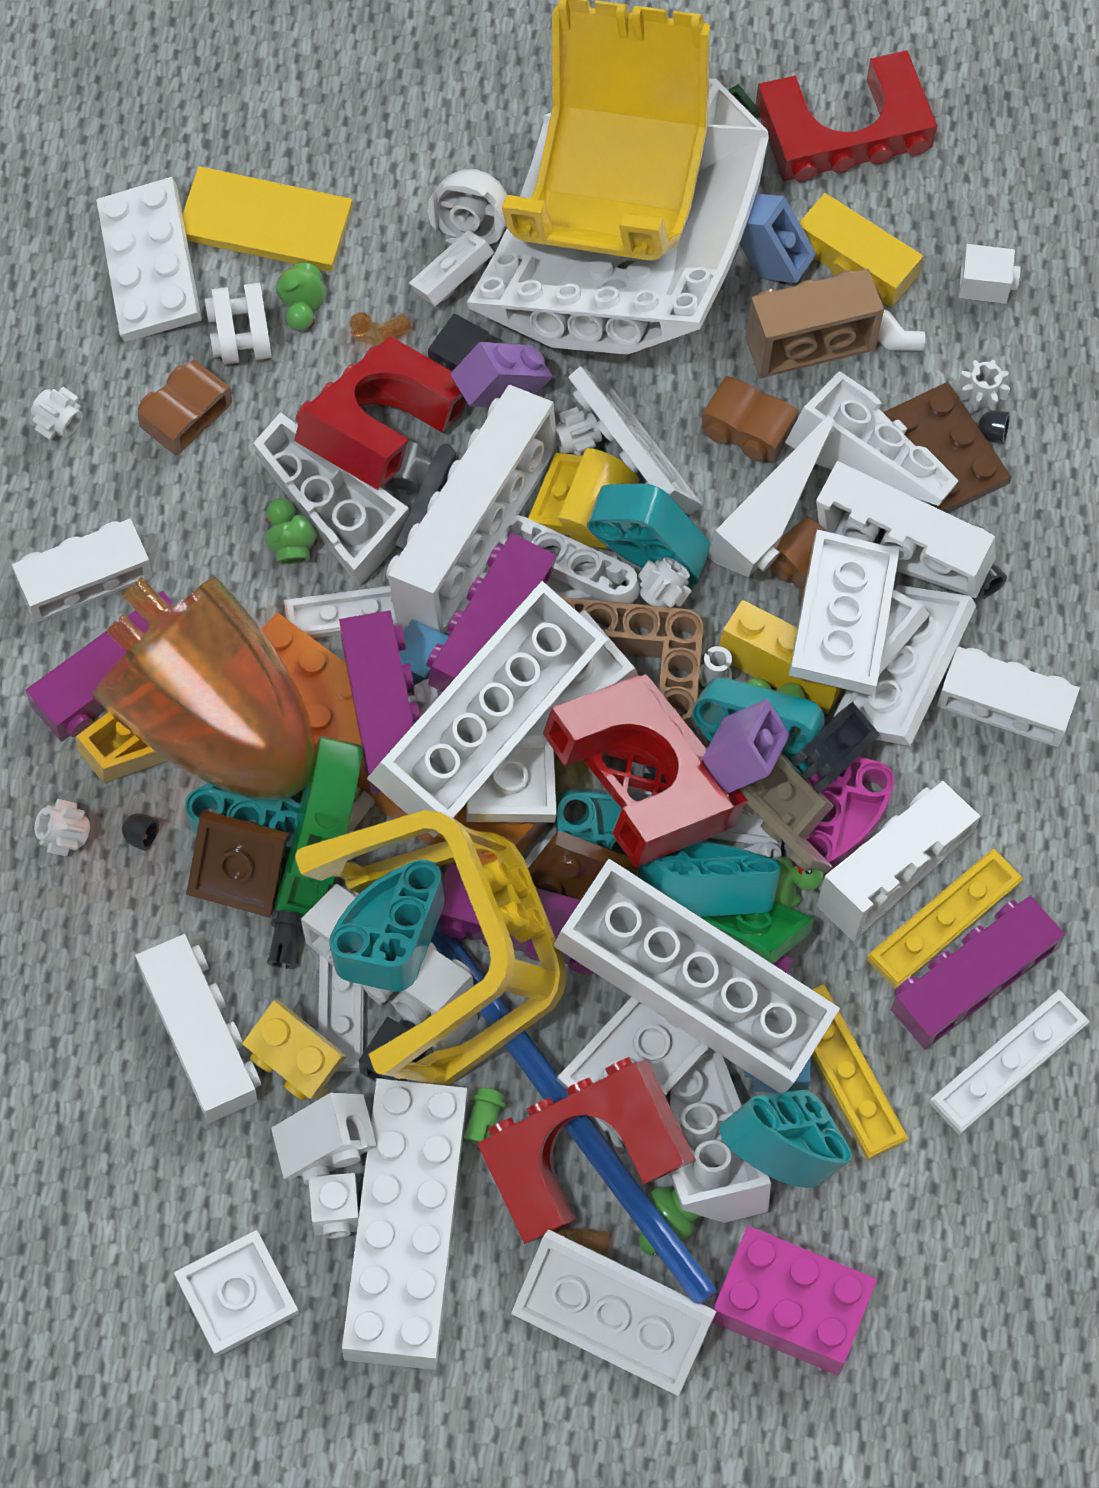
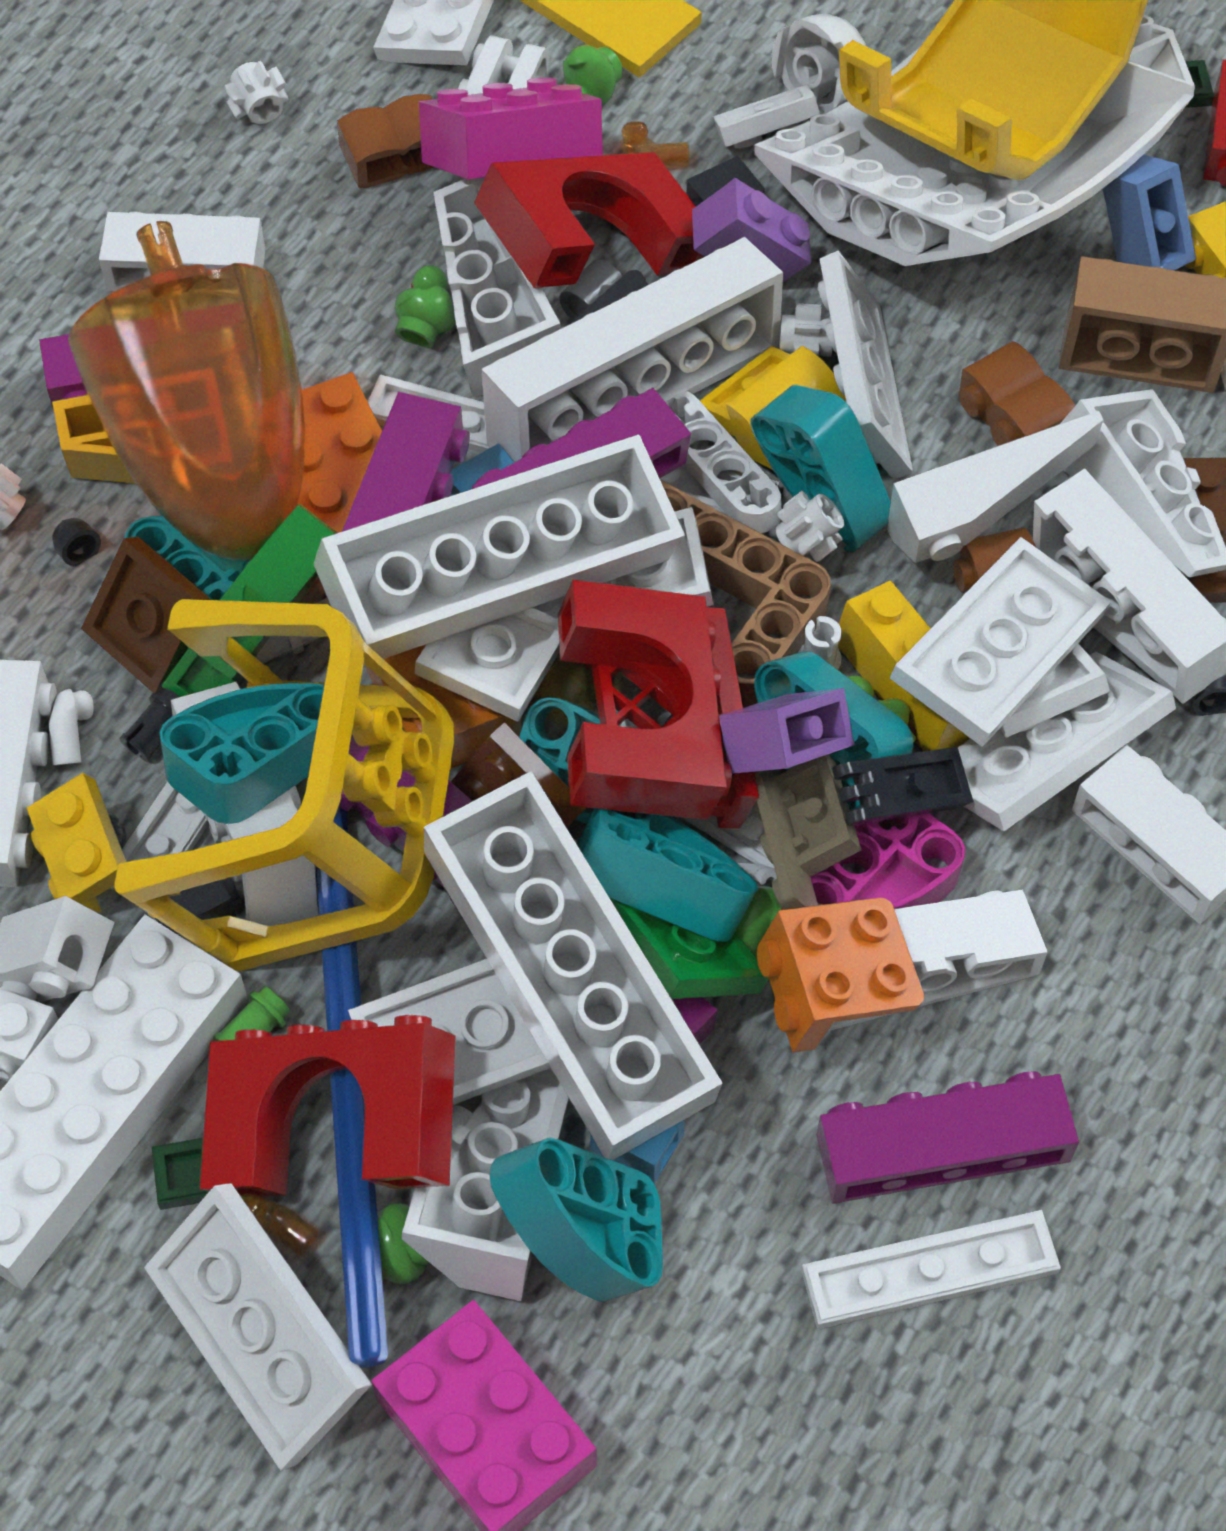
camera: 30 degrees right, 5 degrees down
(218, 960) = (63, 725): none -> white arm
(281, 367) = (508, 124): none -> dark pink brick
(497, 1238) = (178, 1173): none -> dark green tile
(856, 1088) = (718, 1194): yellow tile -> none
(860, 894) = (836, 967): none -> orange bracket
(945, 918) = (945, 1057): yellow tile -> none

